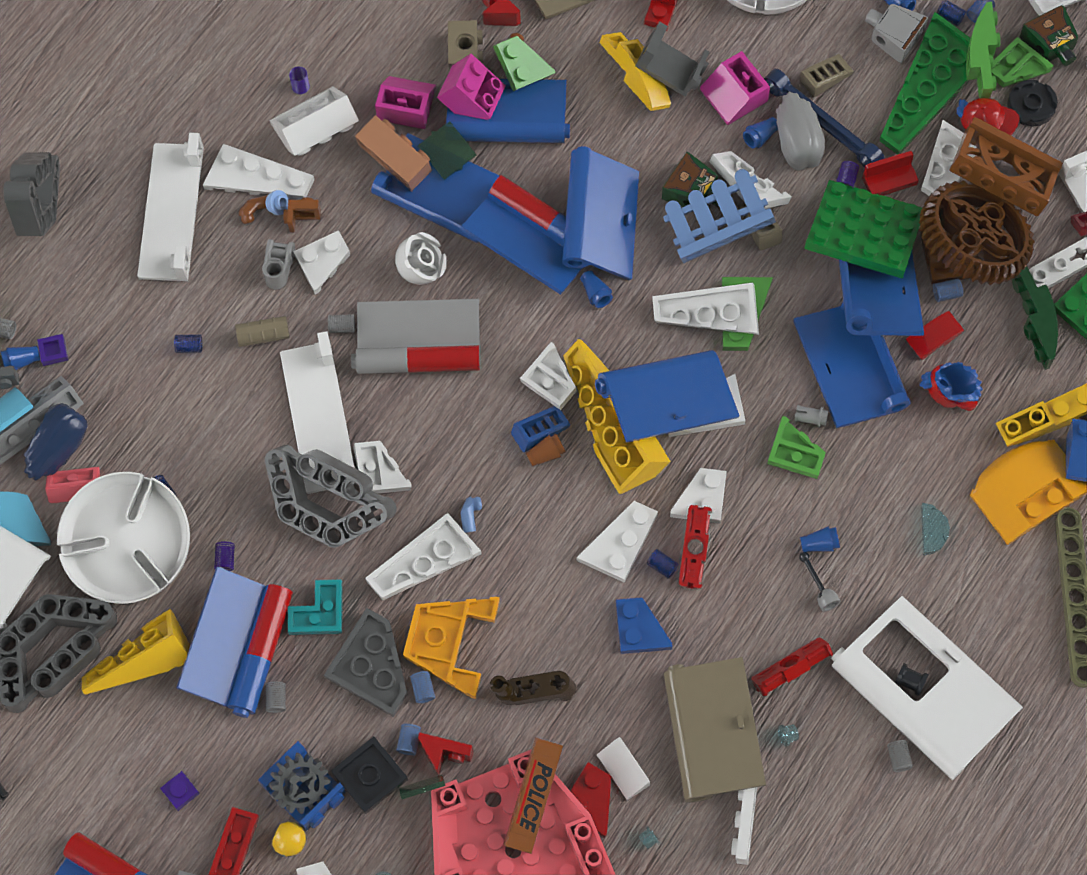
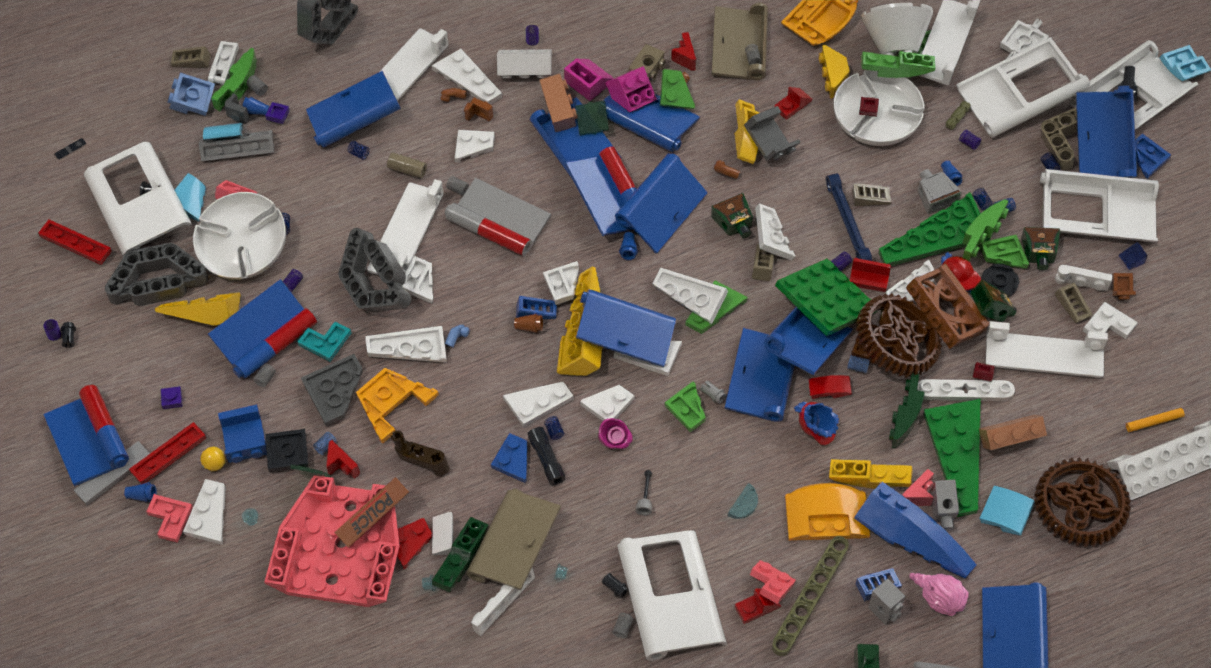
camera: 30 degrees right, 10 degrees down
(54, 441) = (240, 162): dark blue hair -> none
(147, 295) = (352, 109): none -> blue door
(277, 202) = (465, 94): light blue plate -> none
(277, 259) = (443, 131): light grey piece -> none
(307, 773) = (237, 419): dark grey gear -> none
(418, 692) = (355, 423): medium blue piece -> none
(420, 259) = (530, 171): white cylinder -> none
(634, 132) = (721, 168): none -> dark orange arm
(663, 783) = (461, 555): none -> dark green slope
(691, 564) = (588, 417): red piece -> none
(692, 613) = (546, 456): none -> black axle
(735, 88) = (802, 172): dark pink slope -> none
(736, 227) = (729, 251): medium blue fence -> none
(738, 532) = (614, 434): none -> dark pink hair
(760, 132) = (802, 207): blue cone -> none
(791, 666) = (591, 532): red piece -> none
(799, 132) = (825, 219): light grey hair -> none
(821, 541) = (666, 469): blue cone -> none
(859, 713) = (619, 589): none -> black pin
(911, 679) = (663, 583): black bush -> none
(1027, 643) = (755, 607): none -> red slope
(1033, 602) = (776, 582): none -> coral plate
(1053, 139) = (992, 301): none -> dark green torso

